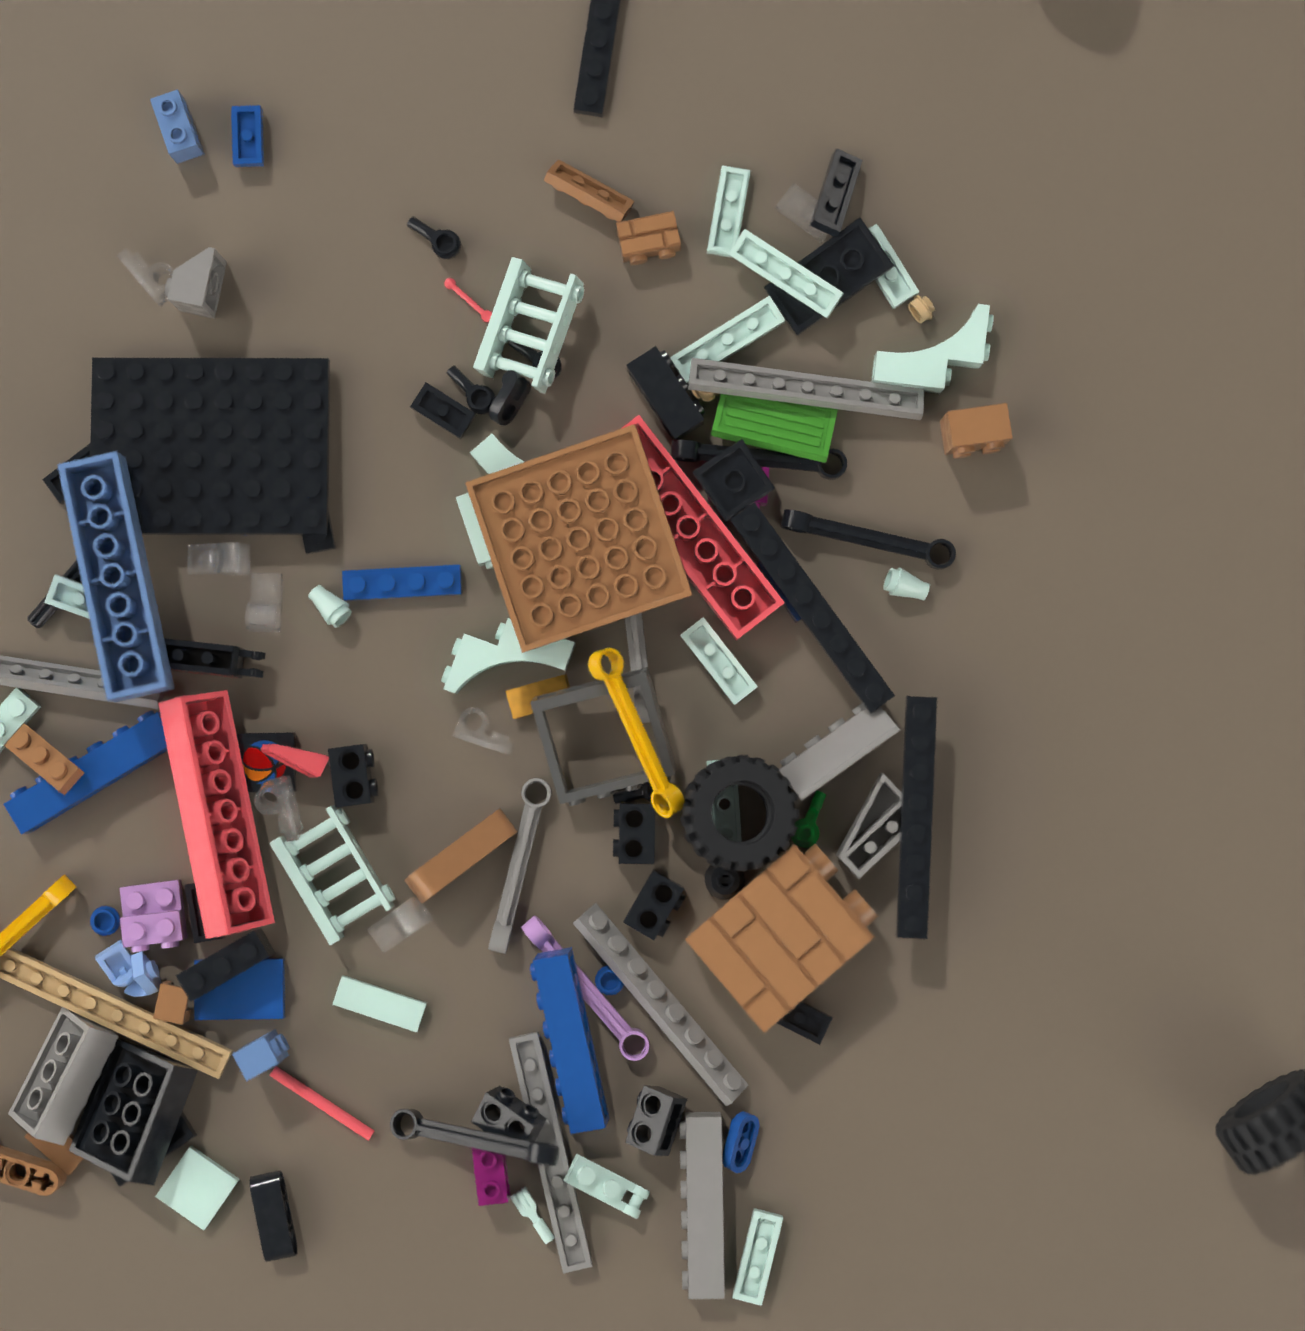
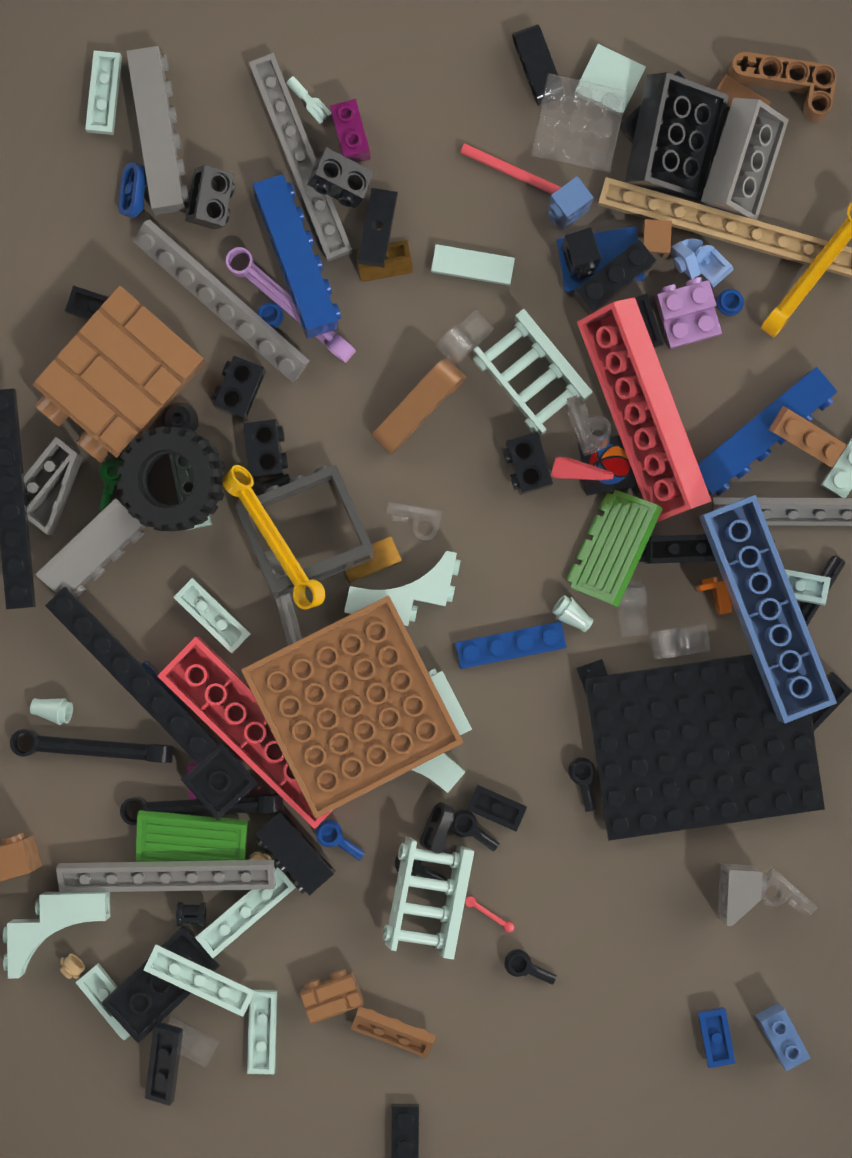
camera: 170 degrees right, 0 degrees up
(166, 602) = (721, 596): none -> orange bracket
(237, 1143) = (578, 122): none -> clear plate
(256, 995) = (581, 253): none -> black brick
(271, 669) = (615, 547): none -> bright green hinge
(345, 435) = (582, 772): none -> black plate
(472, 1072) = (379, 215): none -> black tile
(476, 1023) = (397, 263): none -> pearl gold slope
(517, 869) = (367, 398): light grey piece -> none
(532, 1151) = (311, 151): black piece -> none
(605, 1185) = (247, 134): light aqua plate -> none
(624, 407) = (330, 834): none -> blue plate
(786, 345) = (191, 914): none -> black bush

